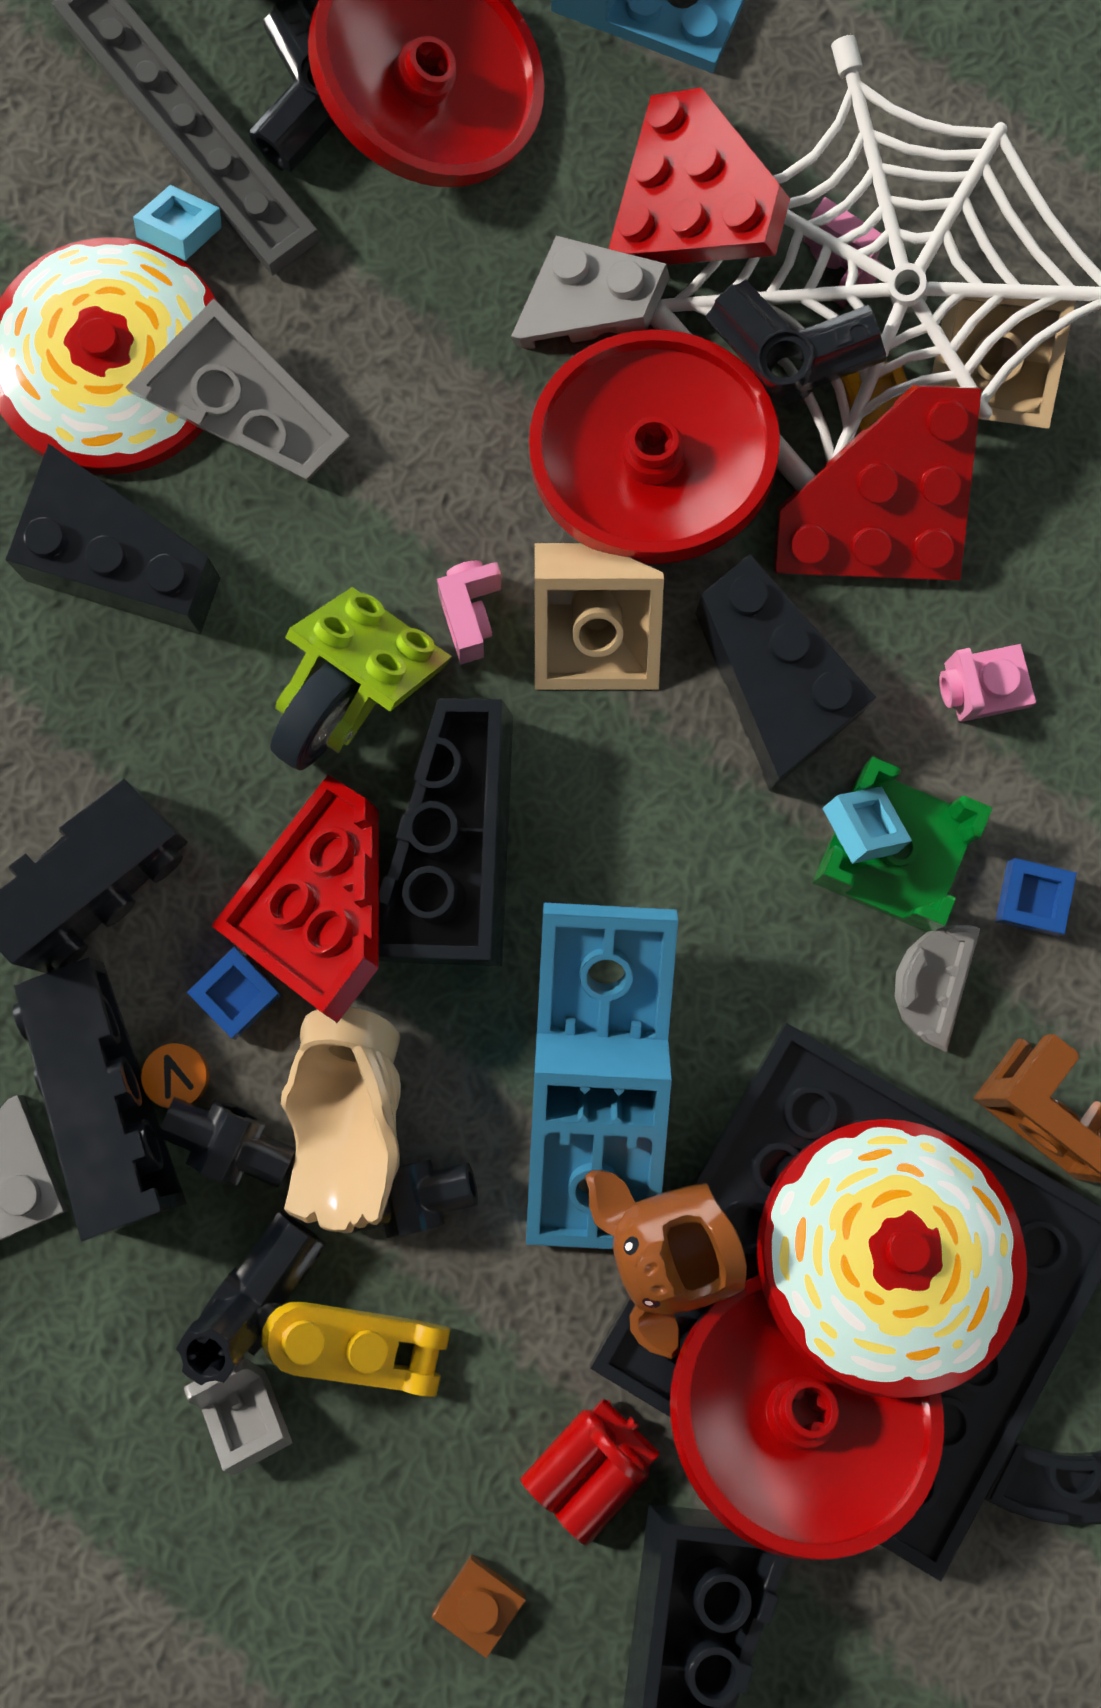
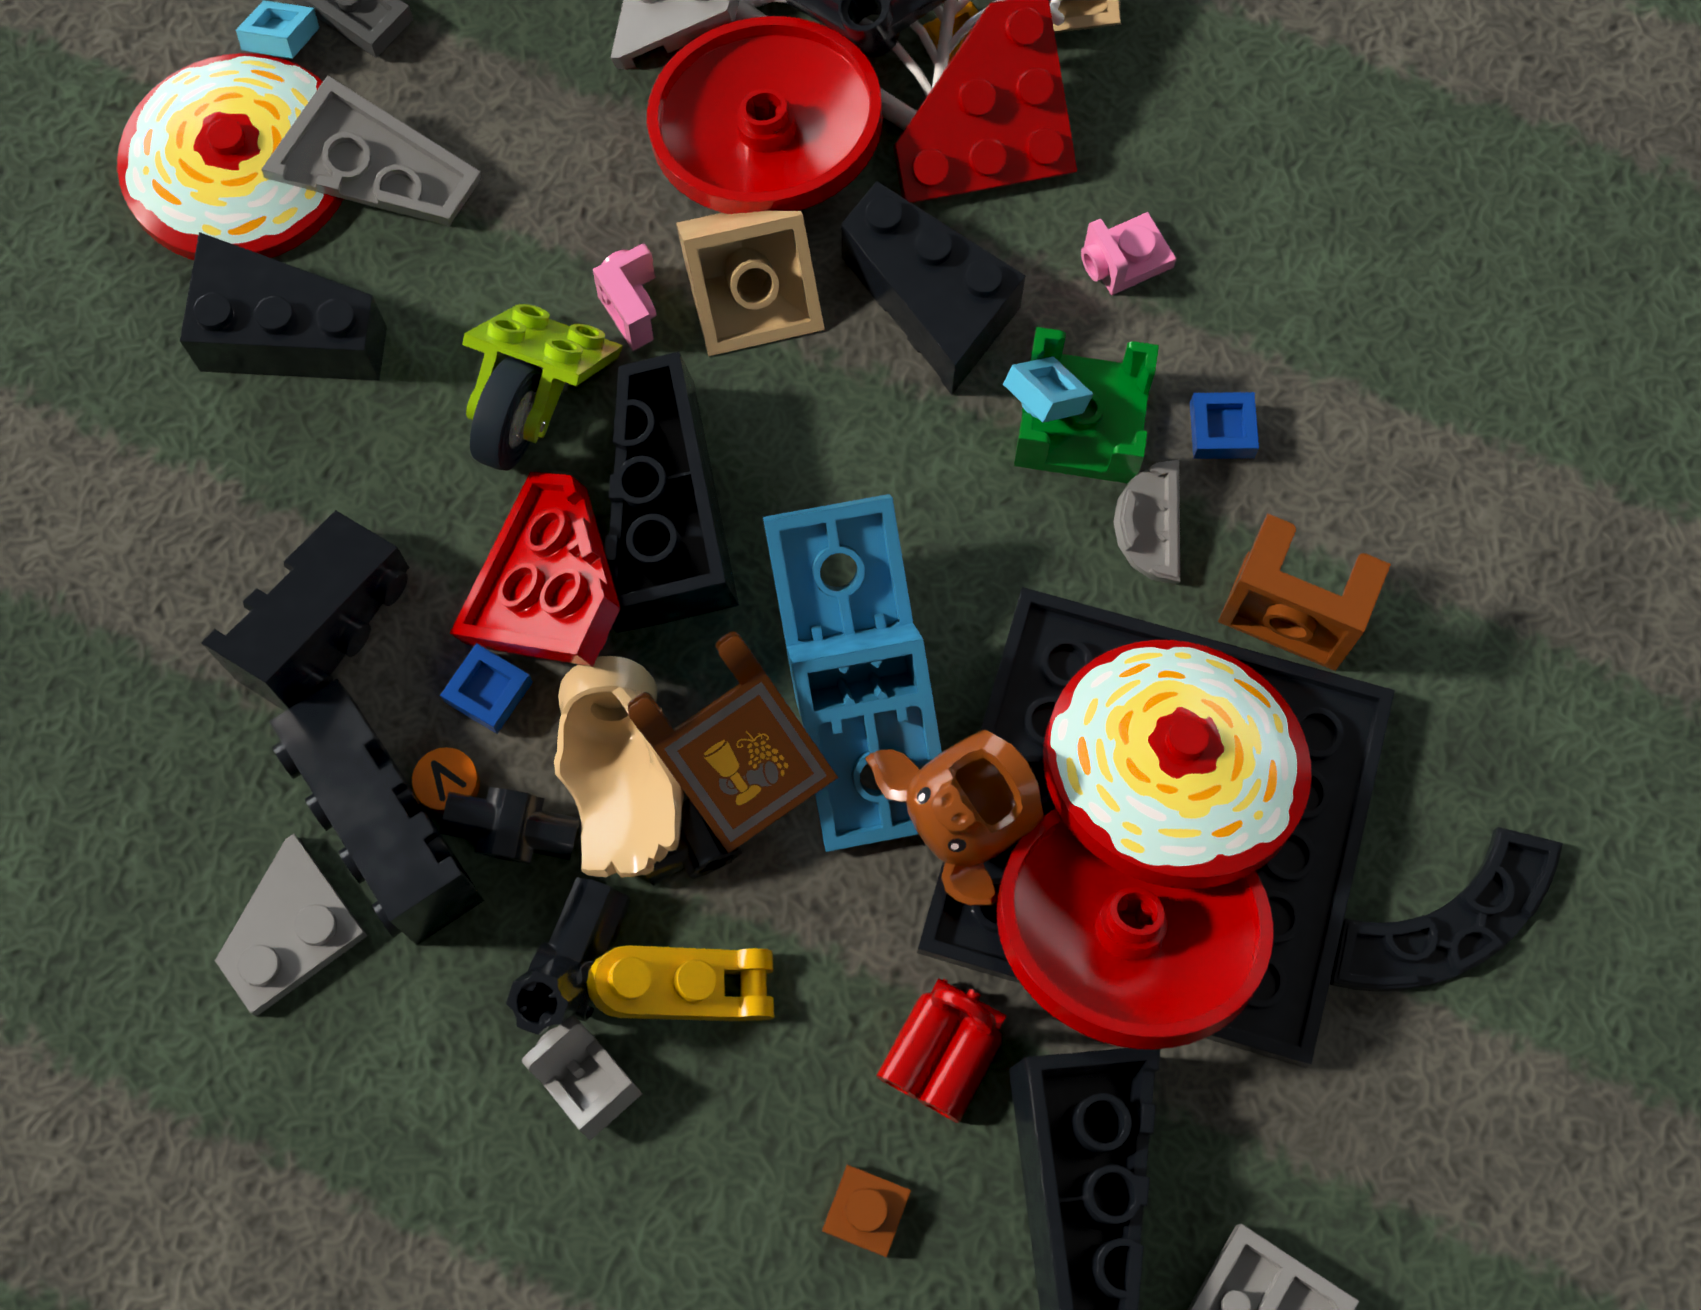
camera: 10 degrees left, 10 degrees down
(462, 1146) = (739, 756): none -> reddish brown flag

